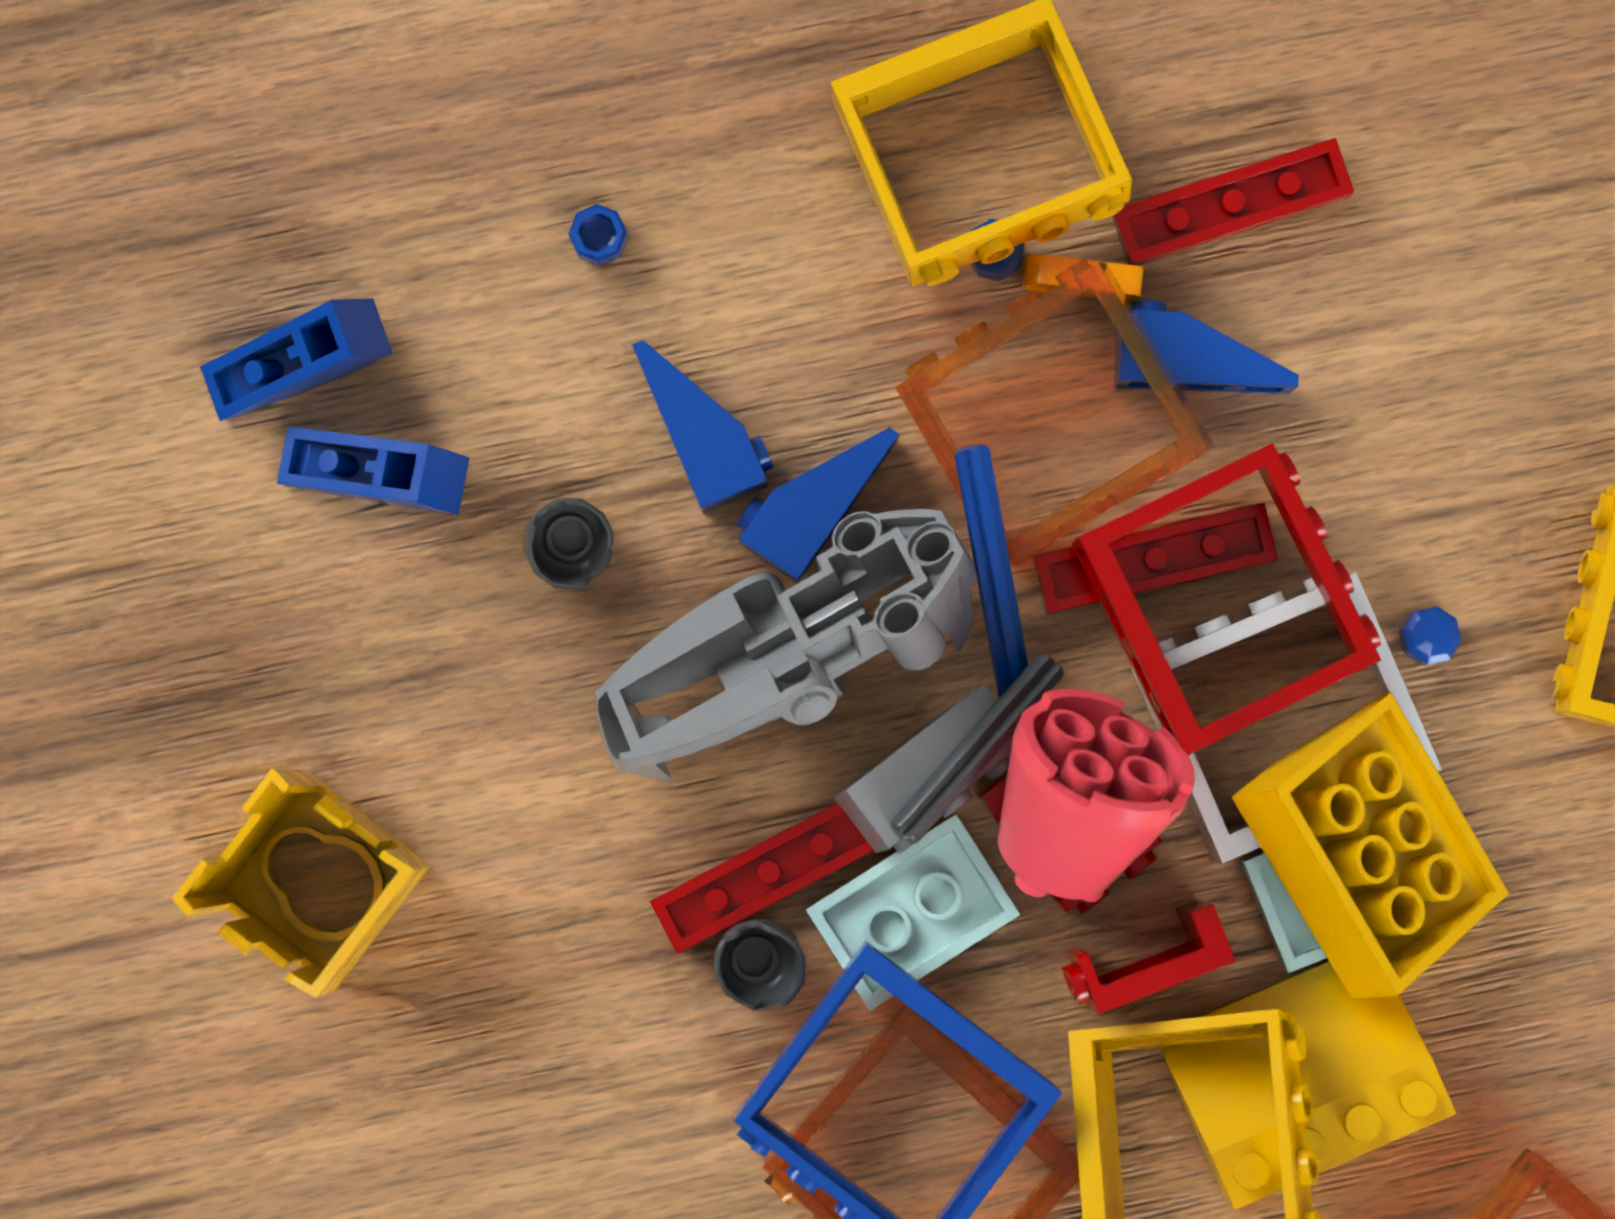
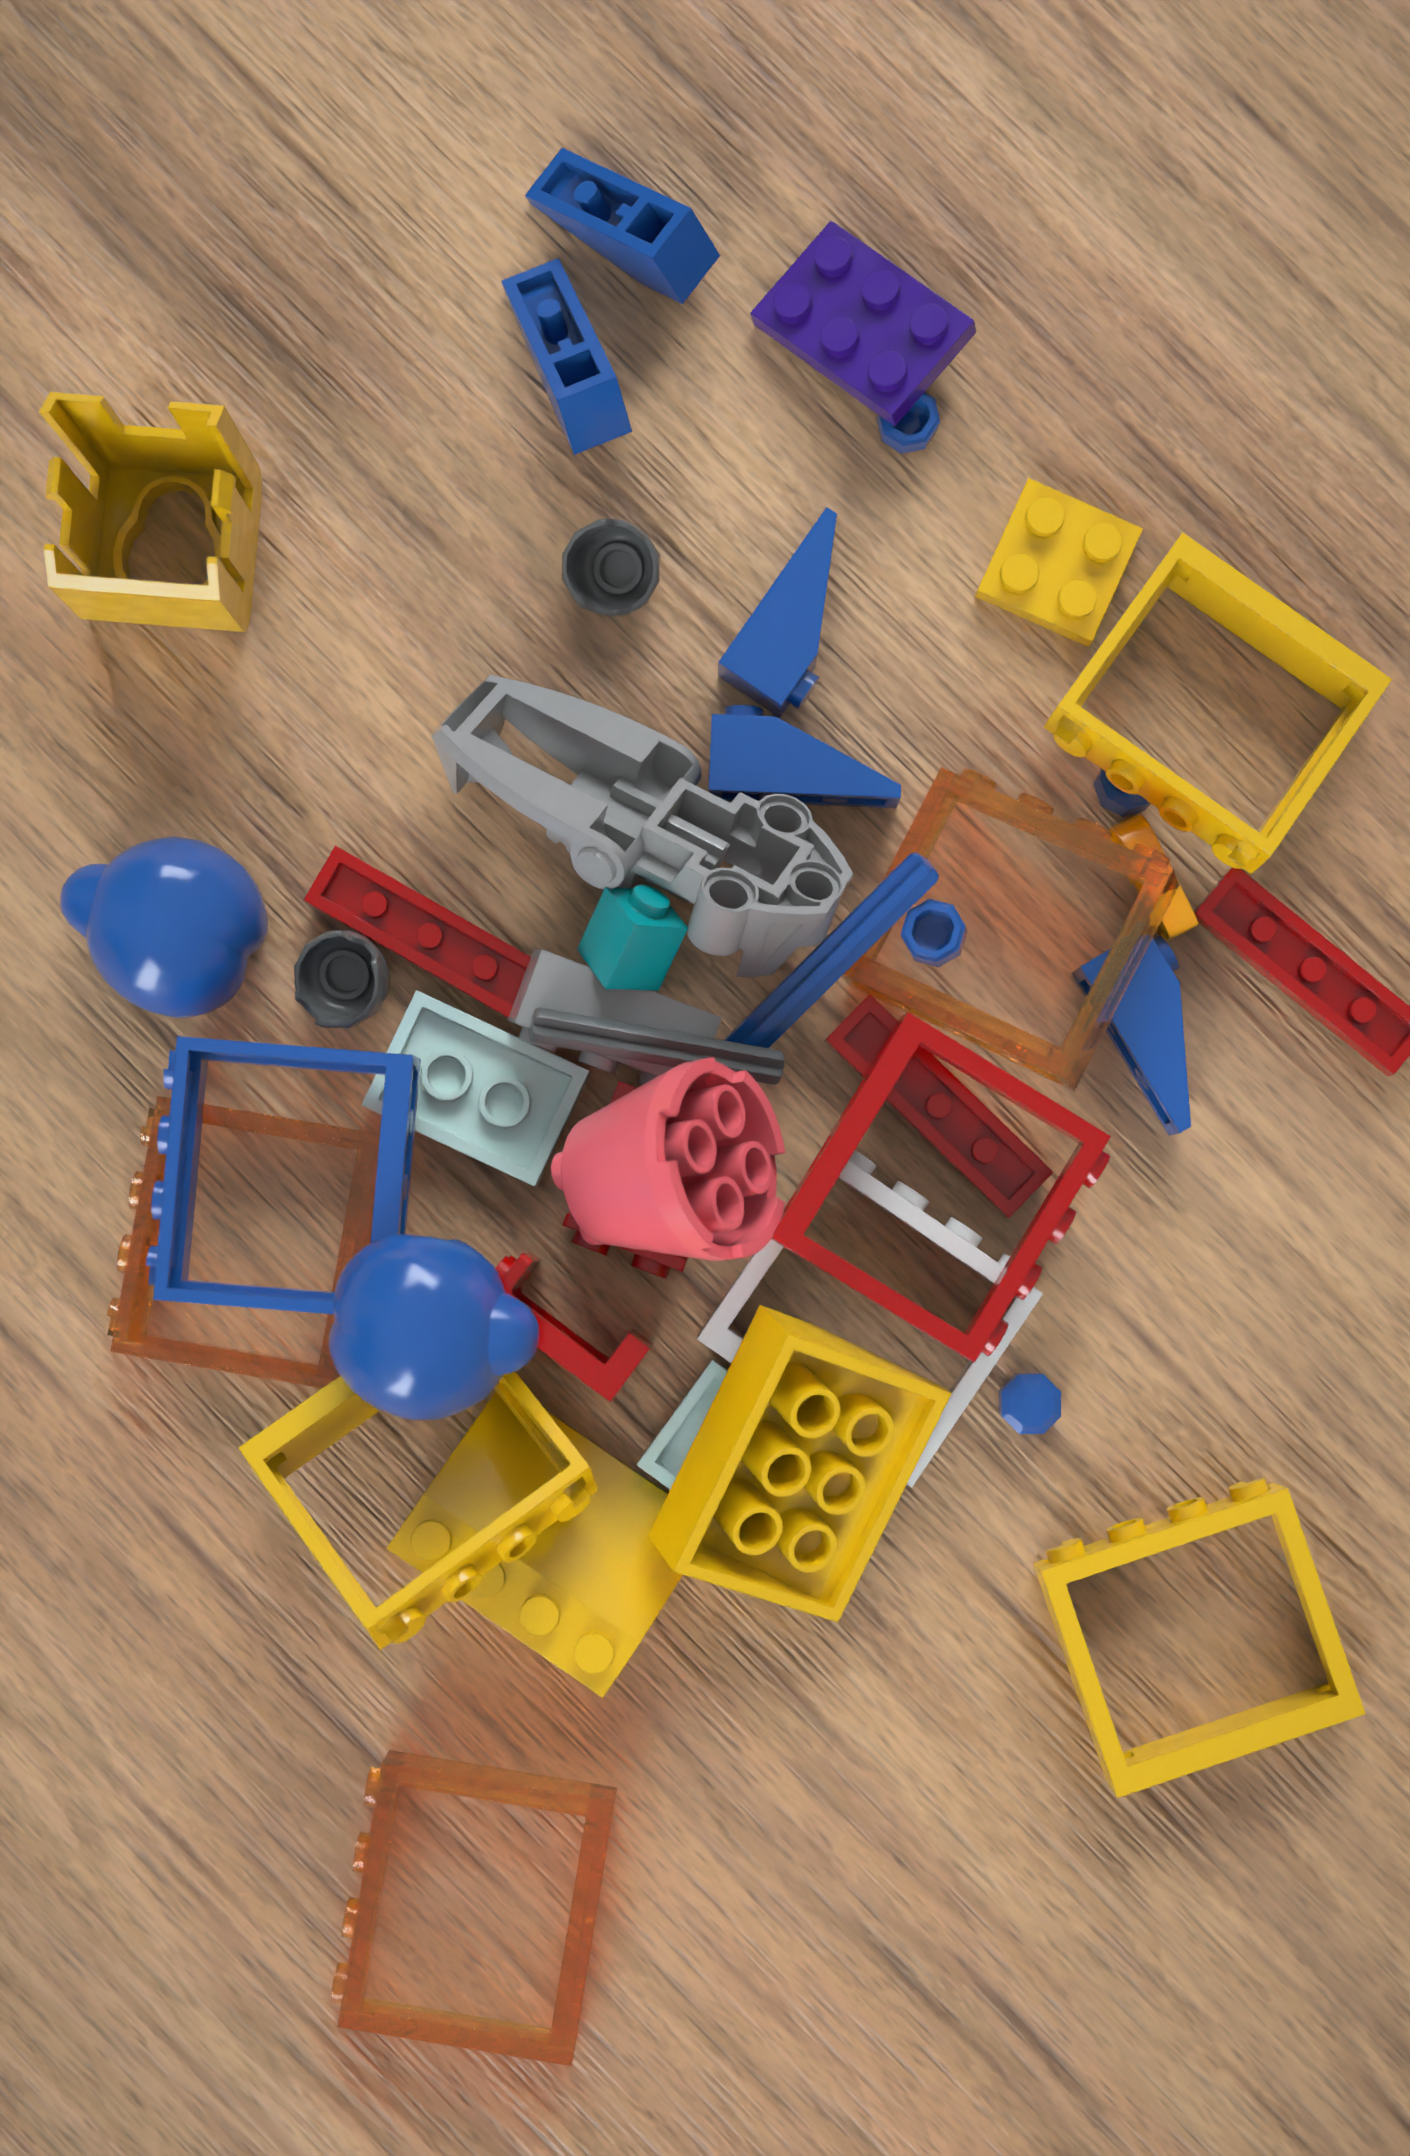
camera: 60 degrees right, 0 degrees up
(500, 221) = (863, 323): none -> dark purple plate
(628, 1073) = (169, 924): none -> blue piece
(786, 190) = (1058, 562): none -> yellow plate
(881, 714) = (632, 938): none -> teal brick
(1026, 477) = (934, 933): none -> blue tile
(1090, 1067) = (426, 1327): none -> blue piece

